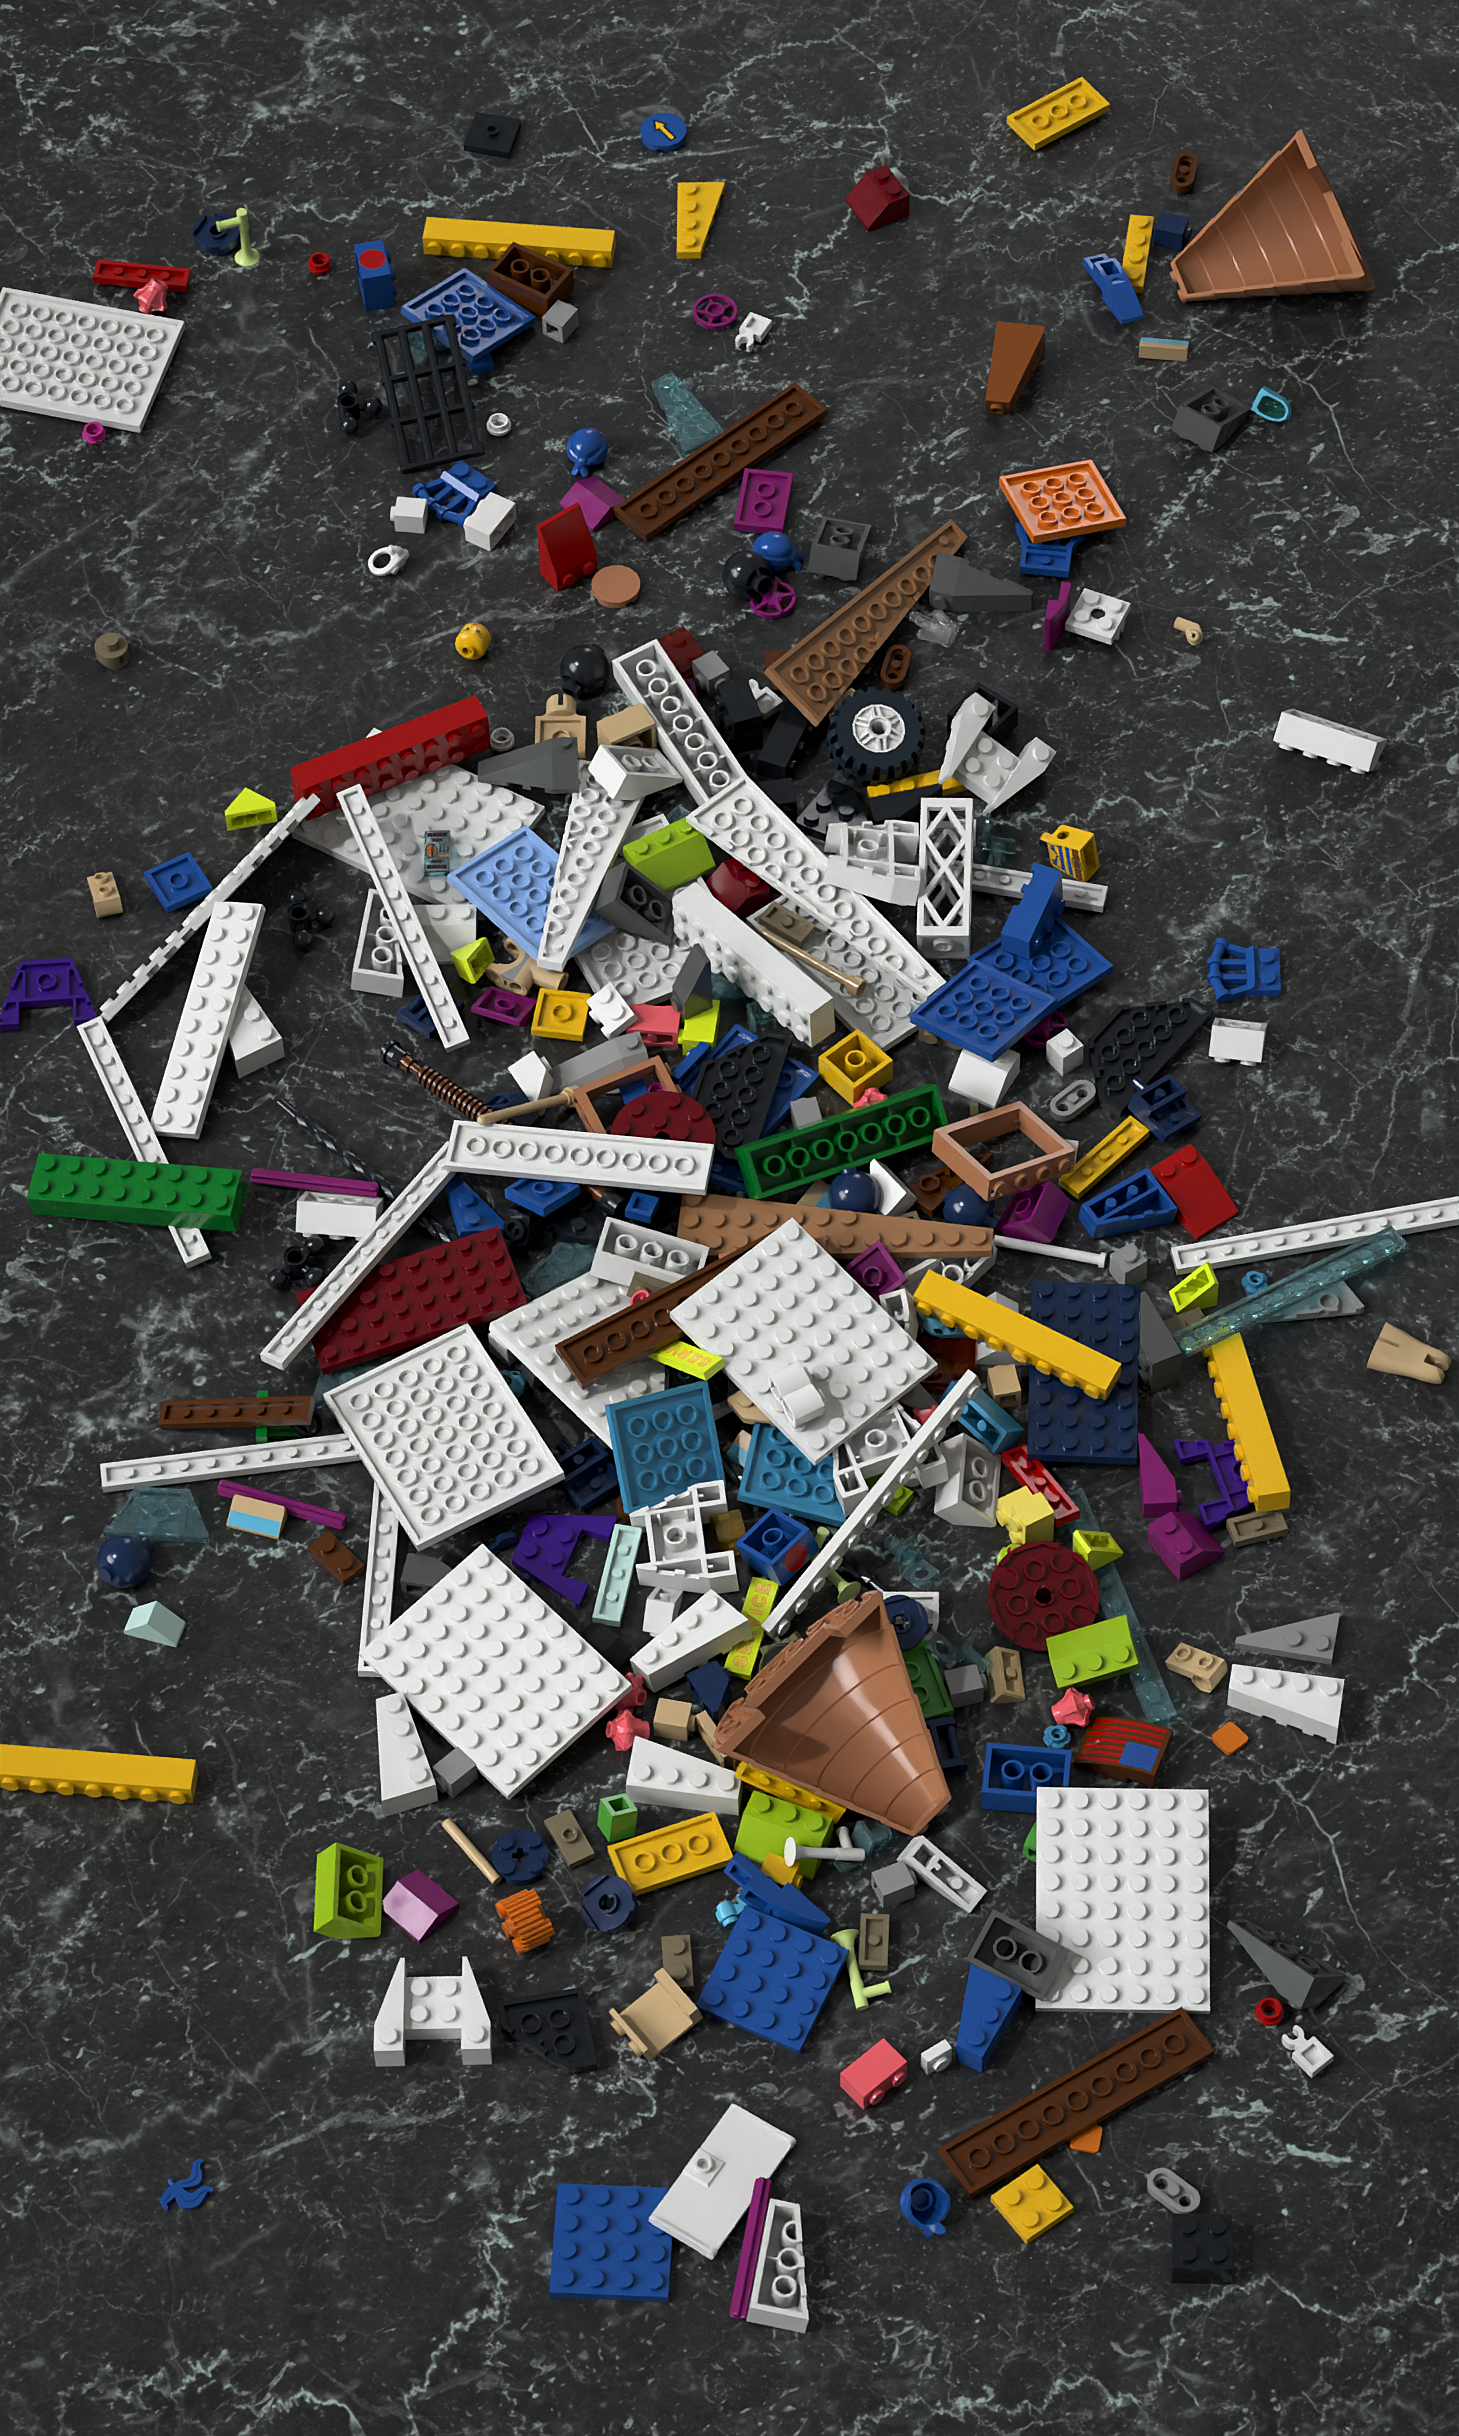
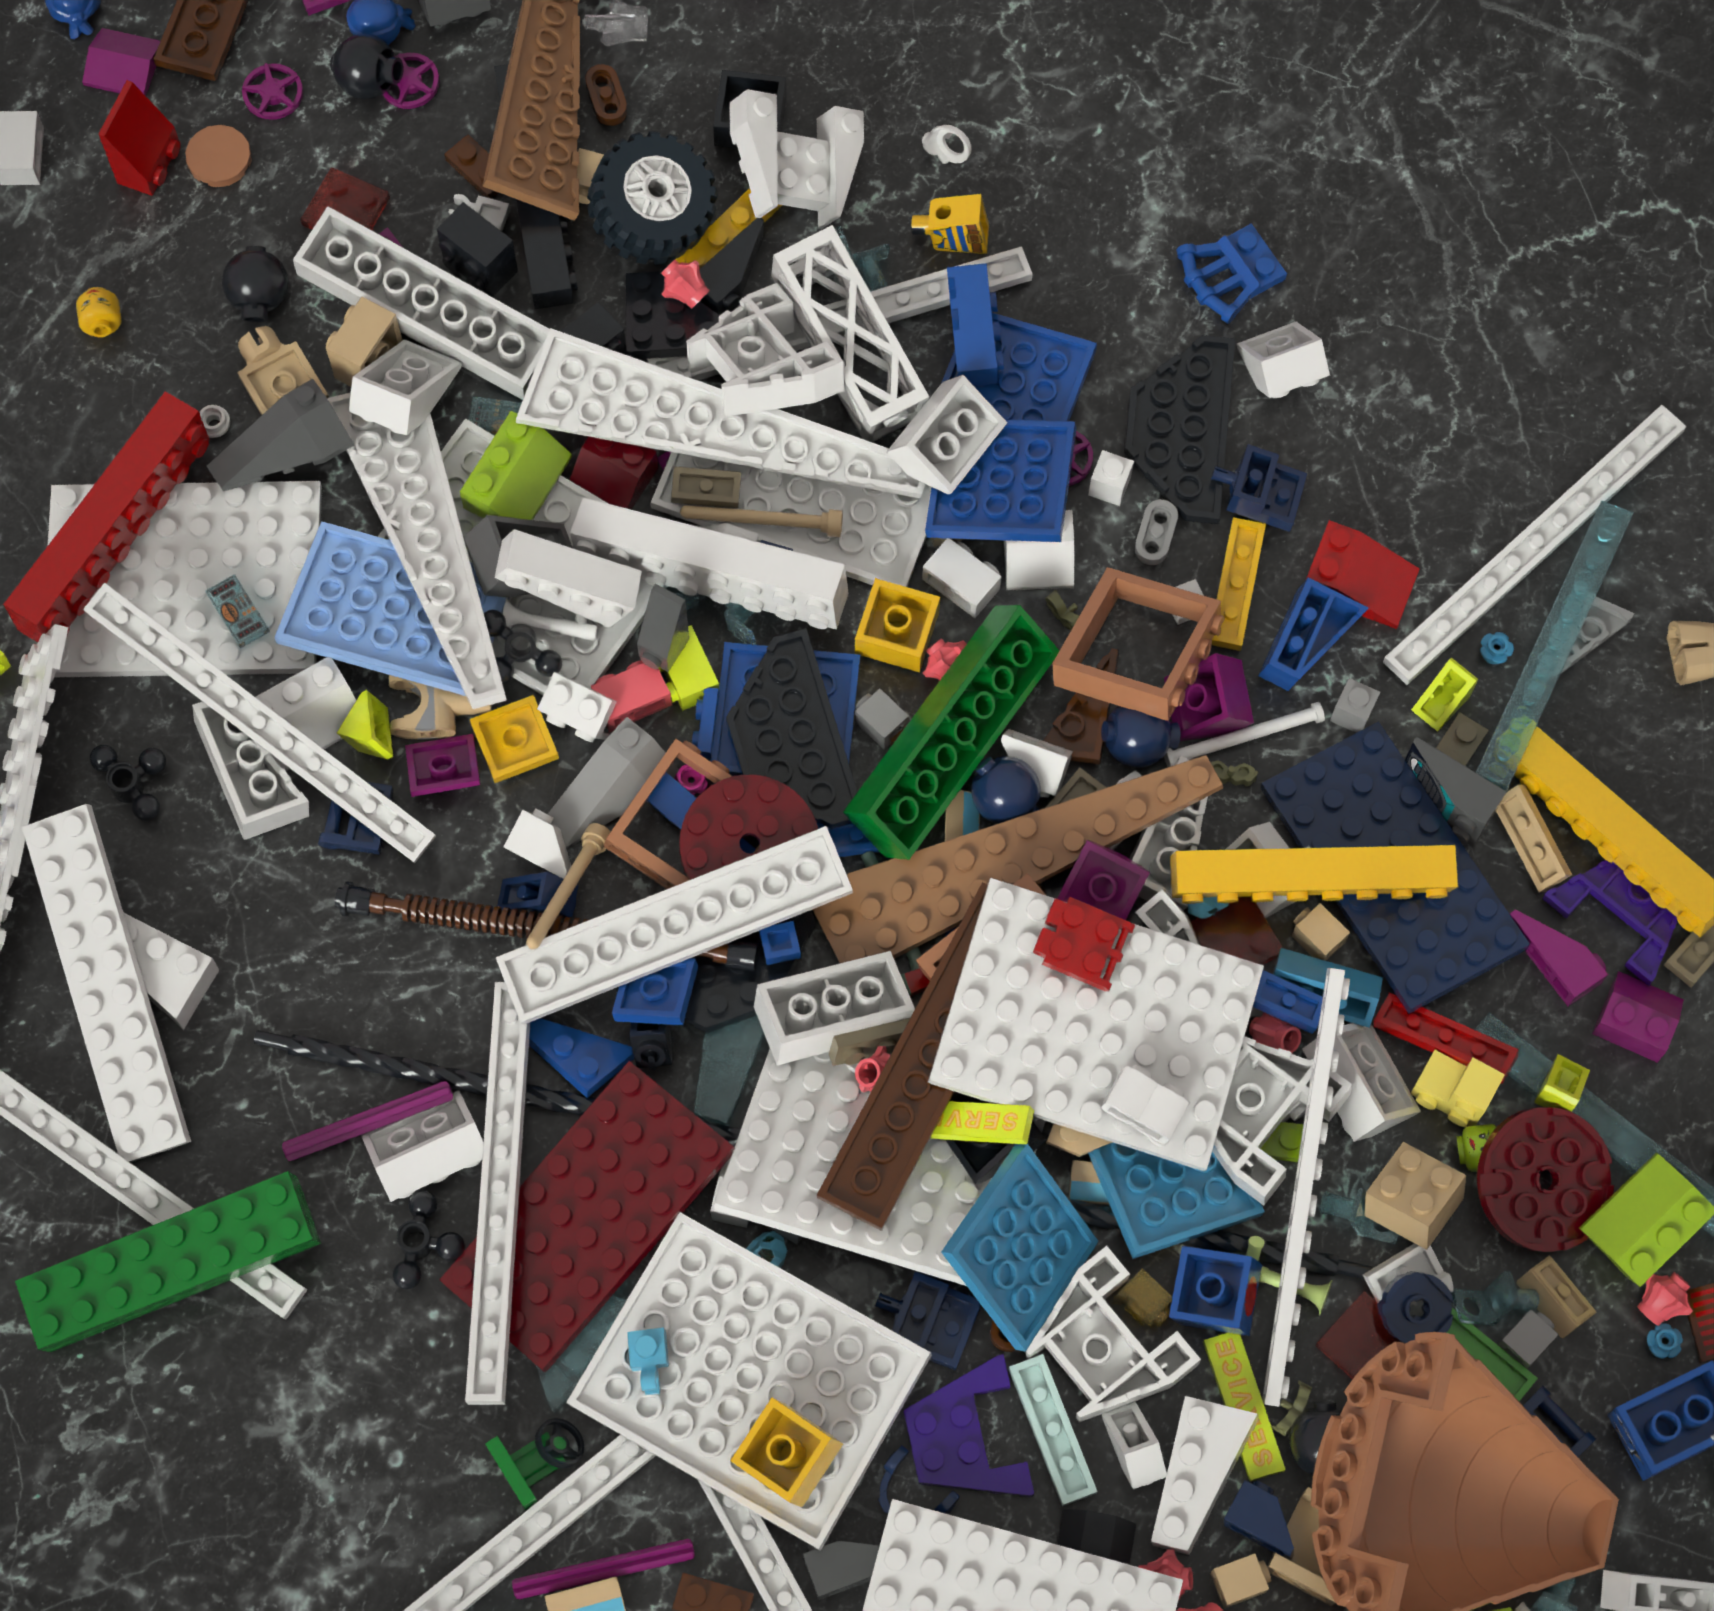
camera: 35 degrees left, 15 degrees up
(236, 1412) = (482, 1490): reddish brown plate -> none
(389, 1388) = (648, 1353): none -> medium azure plate
(433, 1475) = (786, 1452): none -> yellow brick
(579, 966) = (545, 661): none -> black piece
(606, 937) = (576, 628): none -> white piece
(651, 922) = (568, 577): none -> white wedge
(678, 564) = (272, 91): none -> magenta wheel
(710, 672) = (403, 211): light grey brick -> none
(823, 1281) = (1082, 941): none -> red plate
(859, 796) = (684, 283): none -> coral rock
(921, 1060) = (962, 576): none -> white brick
(934, 1393) = (1288, 1002): none -> blue plate
(948, 1560) = (1415, 1195): none -> tan brick
(964, 965) = (947, 435): none -> white slope
(1011, 1265) = (1237, 775): none -> olive piece
(1097, 800) = (935, 144): none -> white piece
(1190, 1402) = (1532, 839): none -> tan plate

